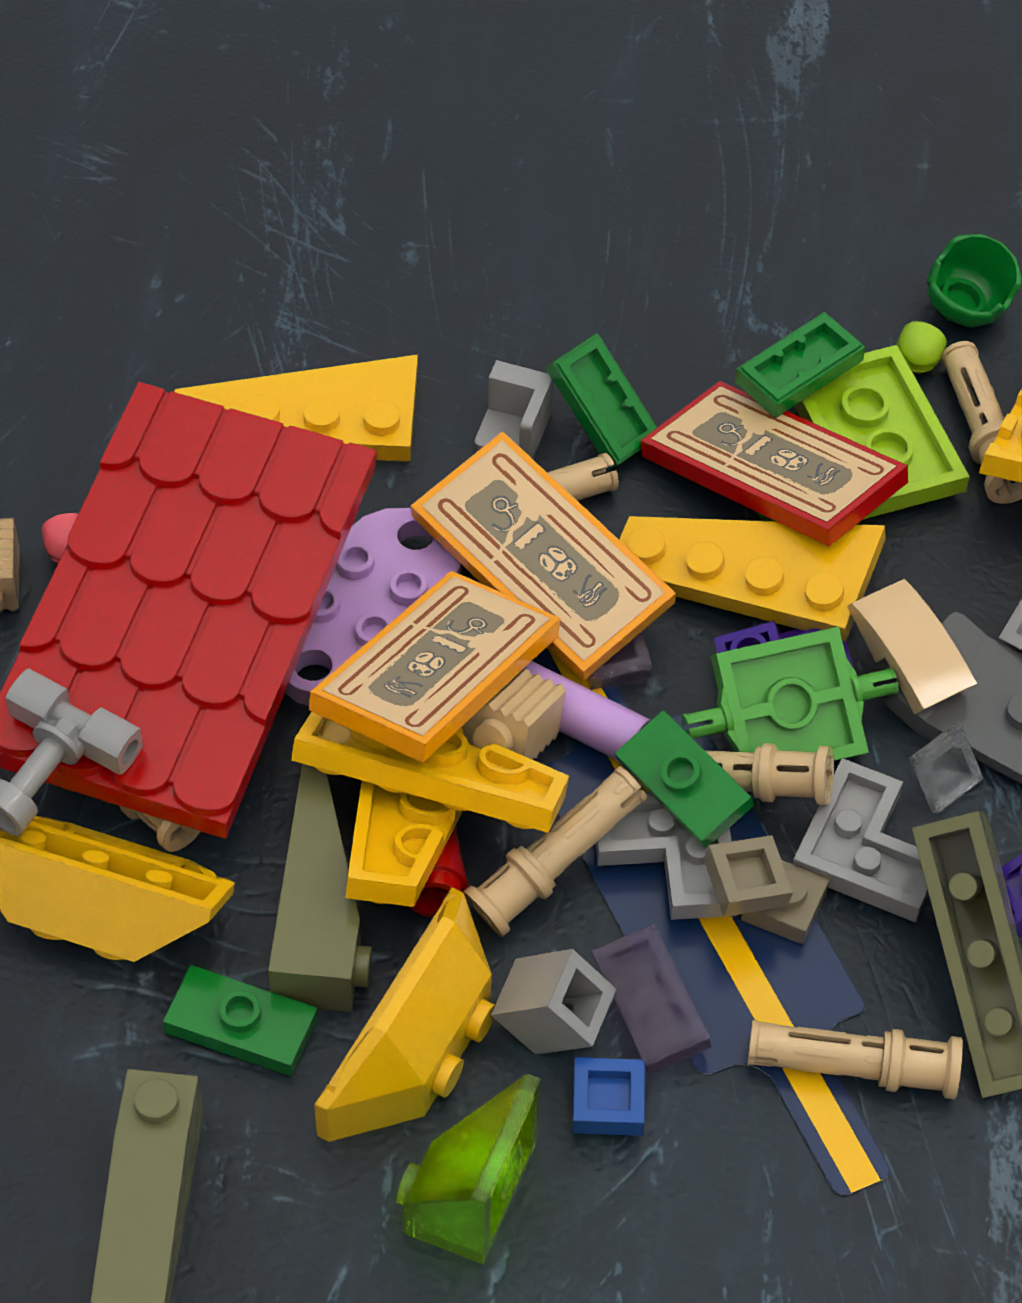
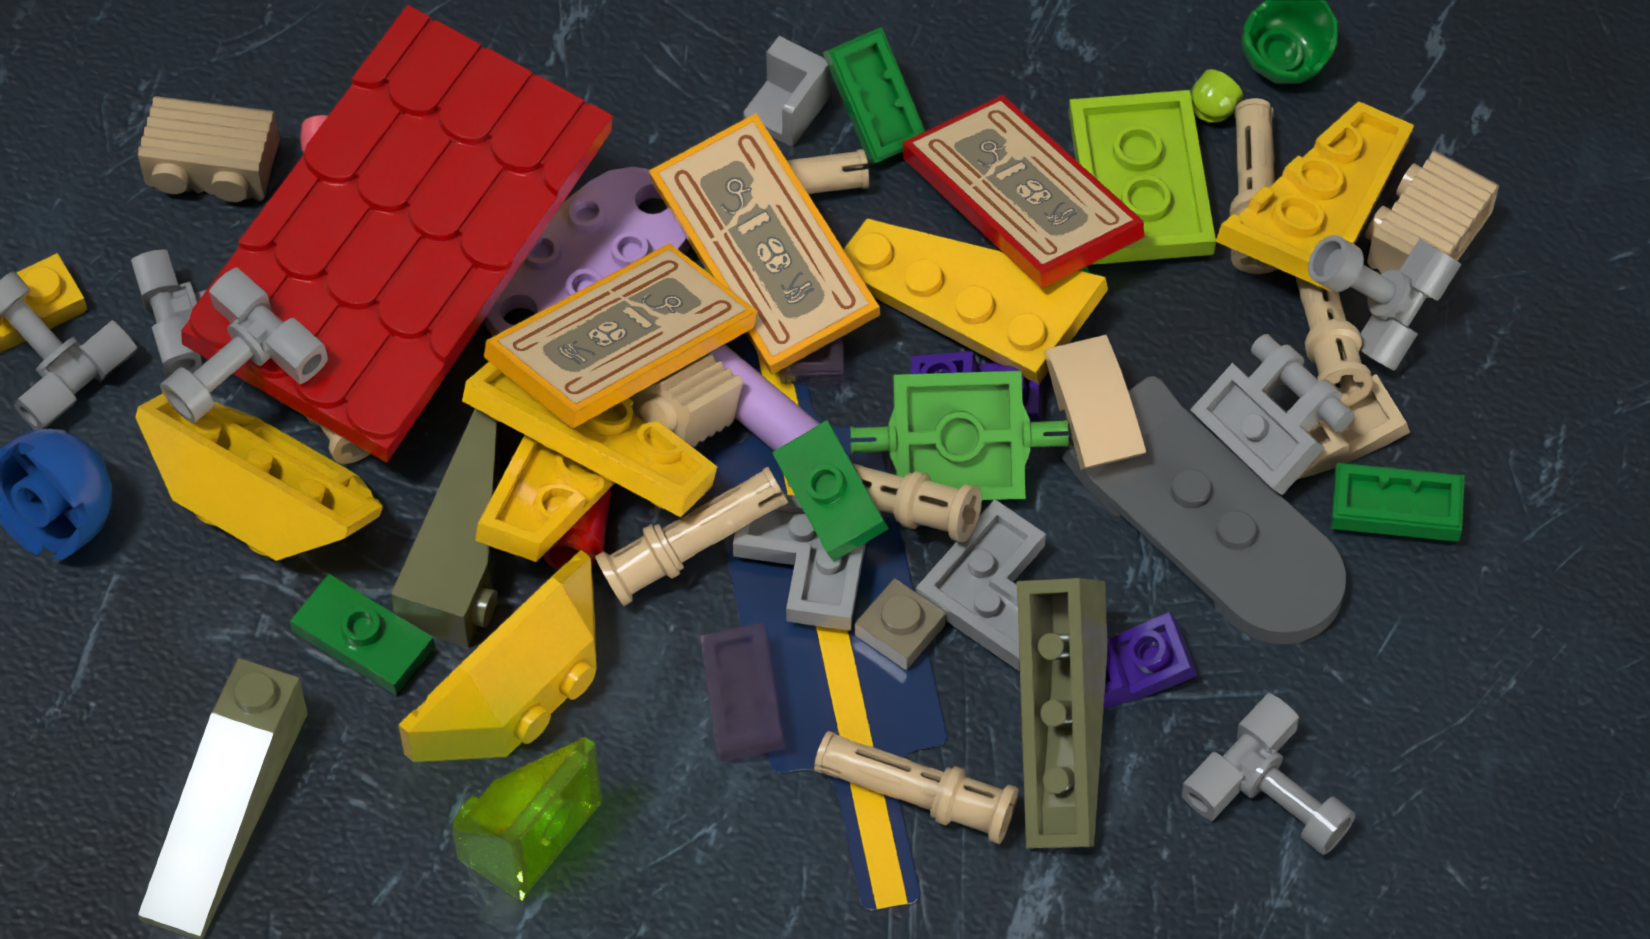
camera: 15 degrees right, 5 degrees up
(350, 402) = (600, 55): yellow wing -> none
(554, 1002) = (646, 676): light grey brick -> none
(608, 1096) = (675, 773): blue plate -> none
(748, 876) = (860, 595): dark tan plate -> none
(799, 364) = (1078, 95): green plate -> none
(946, 768) = (1095, 528): clear slope -> none

